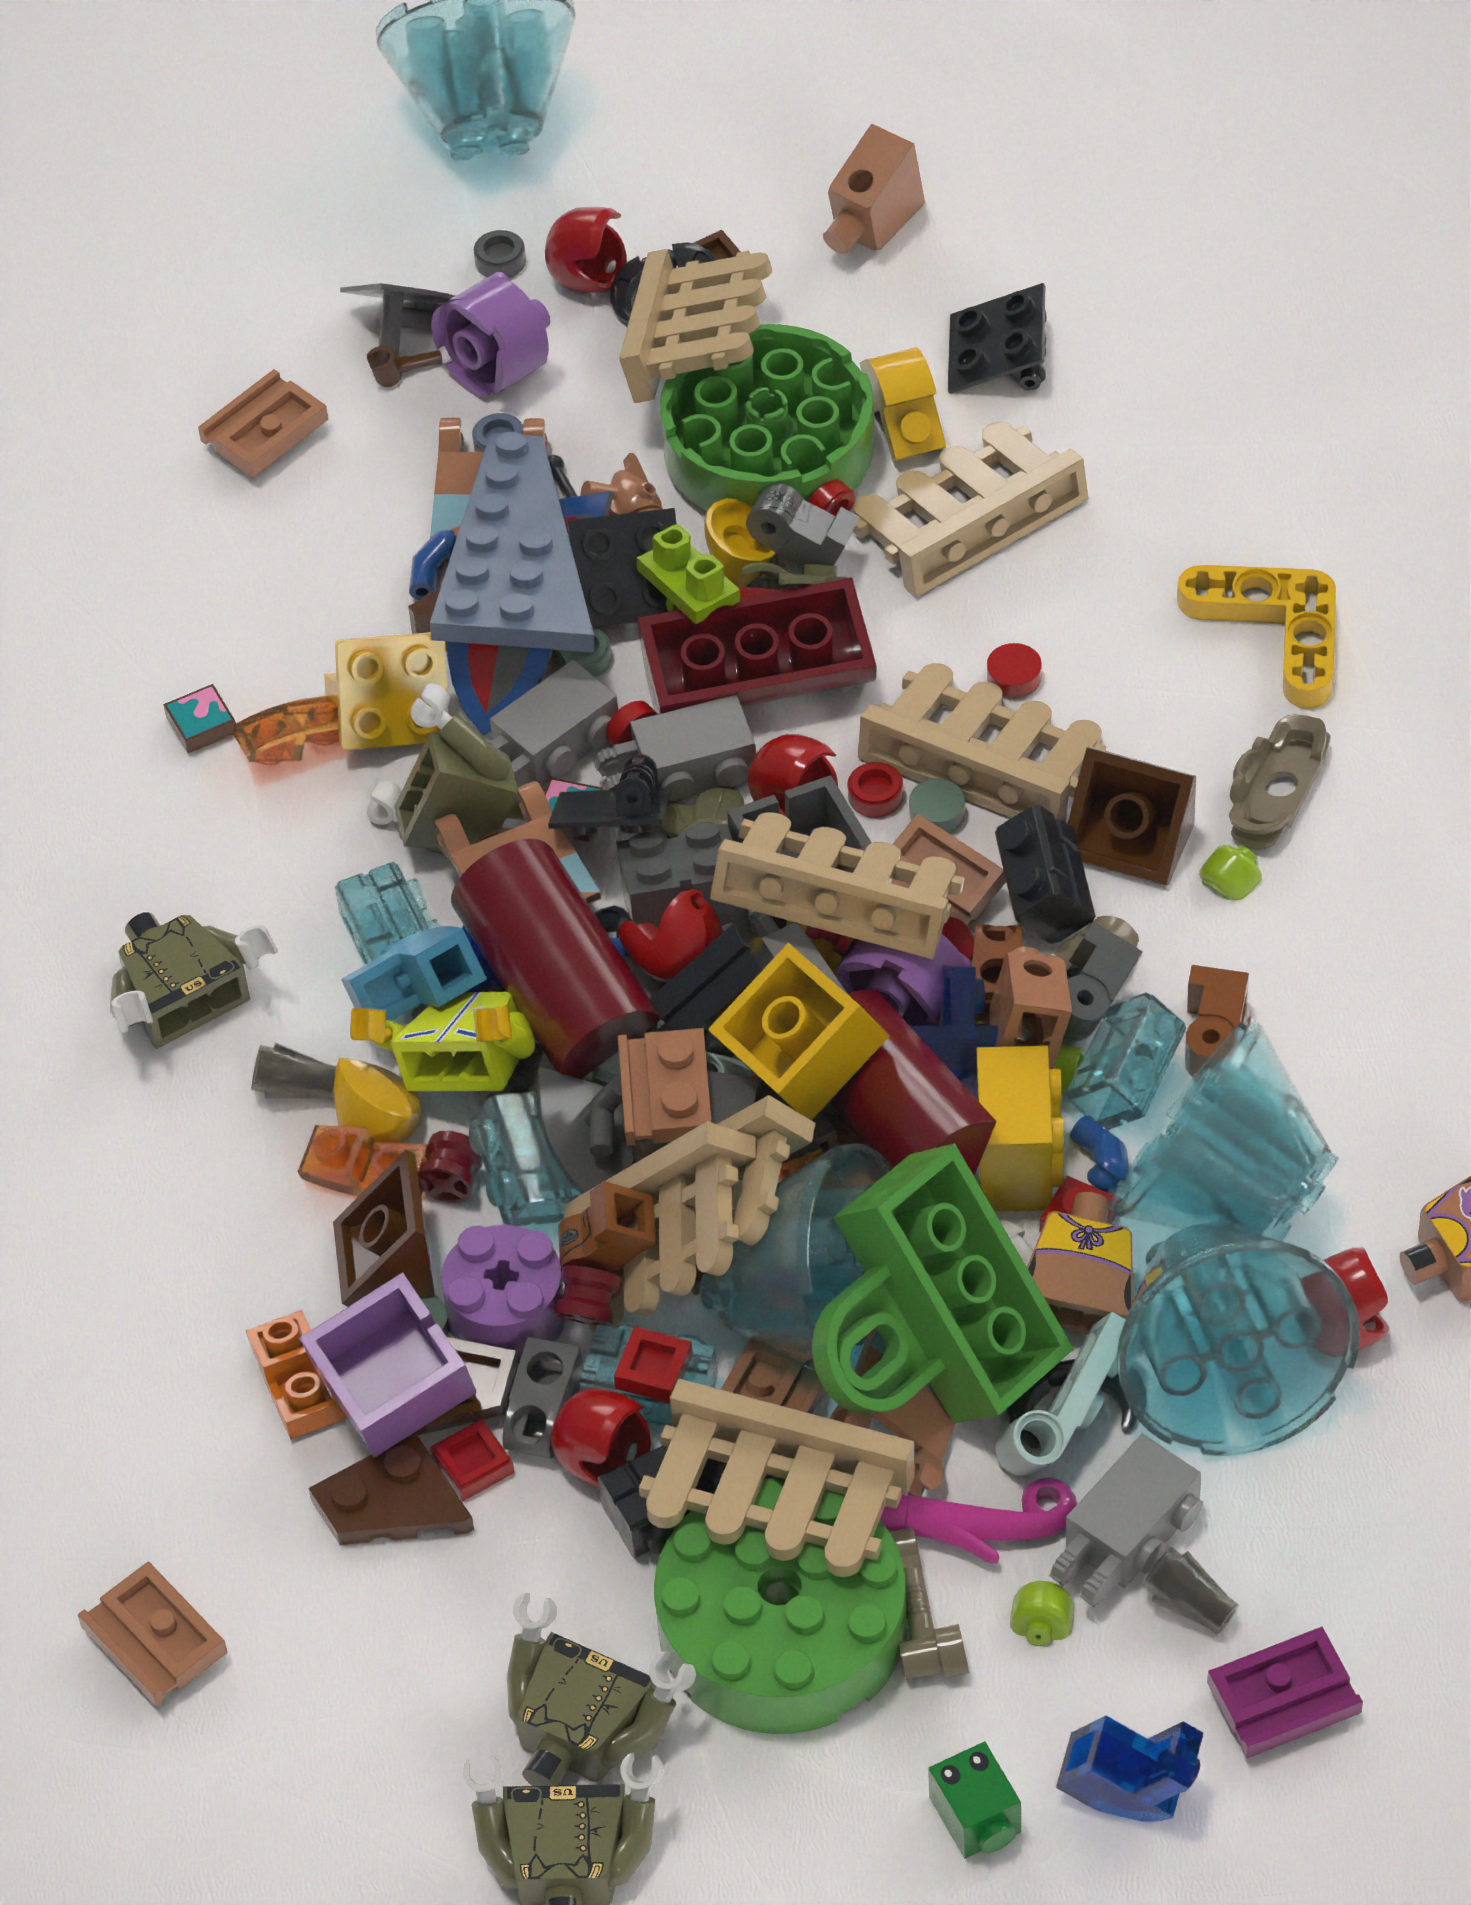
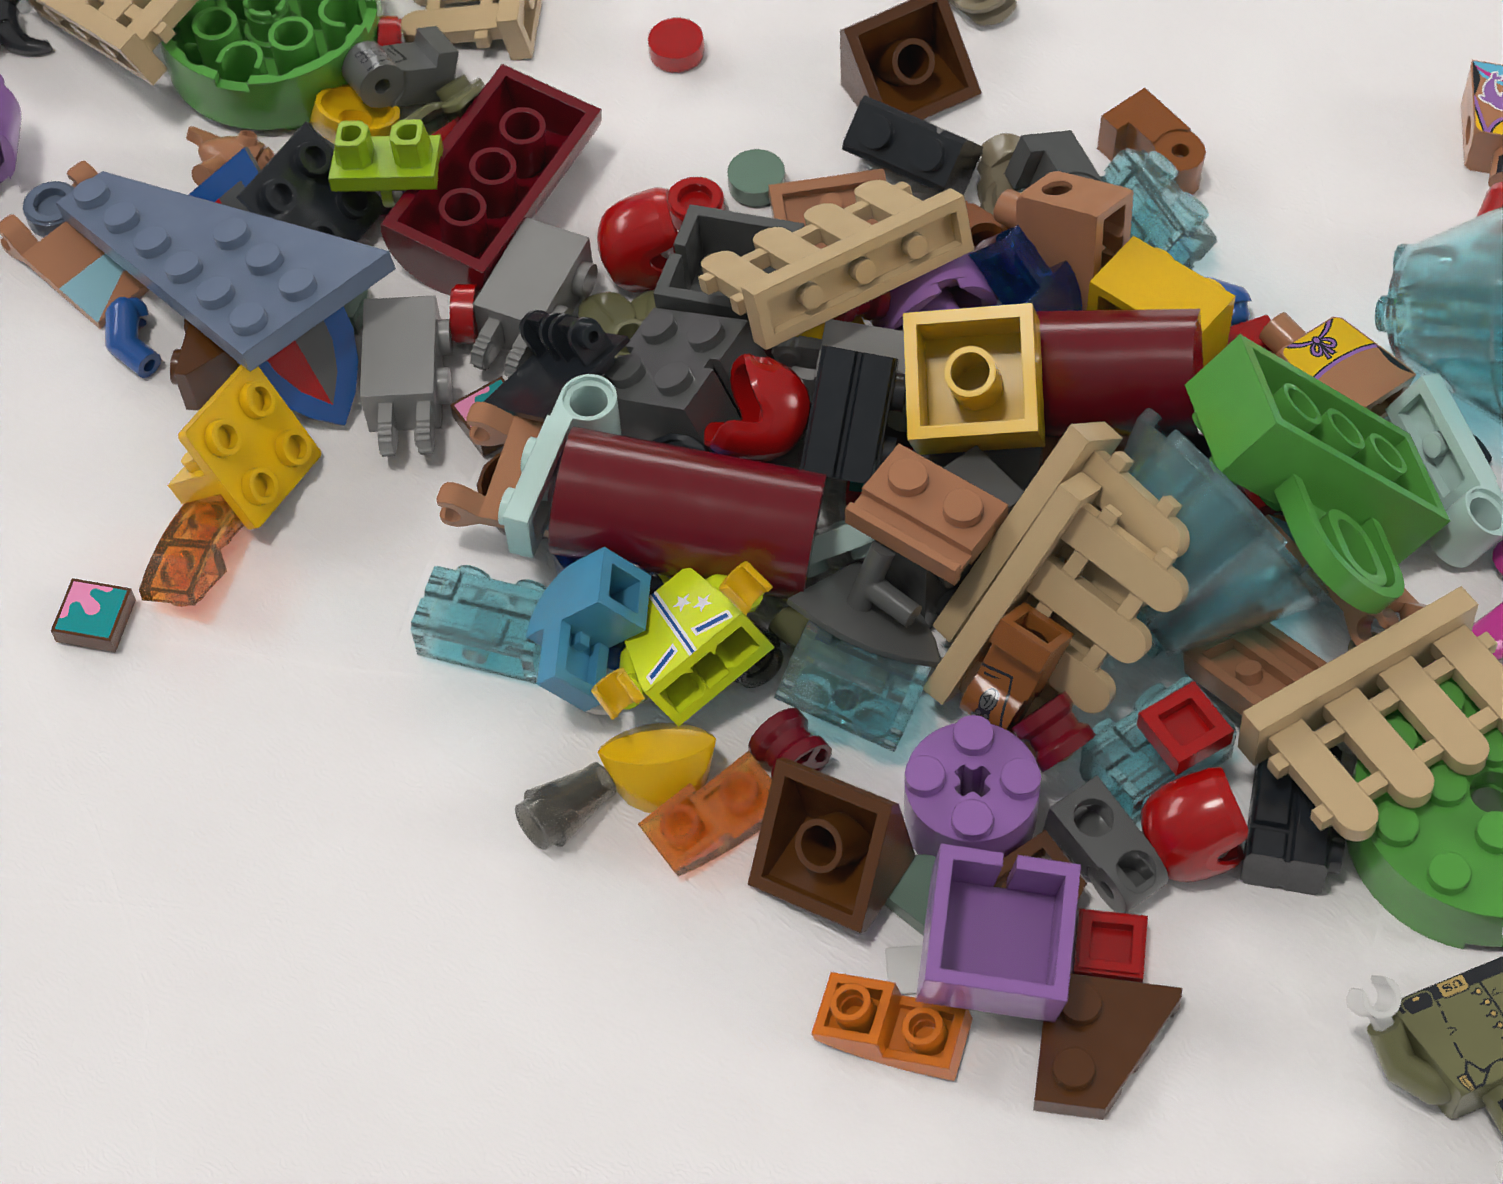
camera: 50 degrees left, 5 degrees up
(182, 974) = (368, 812): olive torso -> none
(452, 775) = (408, 459): olive torso -> none
(573, 837) = (528, 506): none -> light aqua plate
(988, 774) = (763, 118): tan fence -> none
(1231, 871) = (1008, 47): lime piece -> none
(1233, 1149) = (1311, 196): clear light blue cone -> none

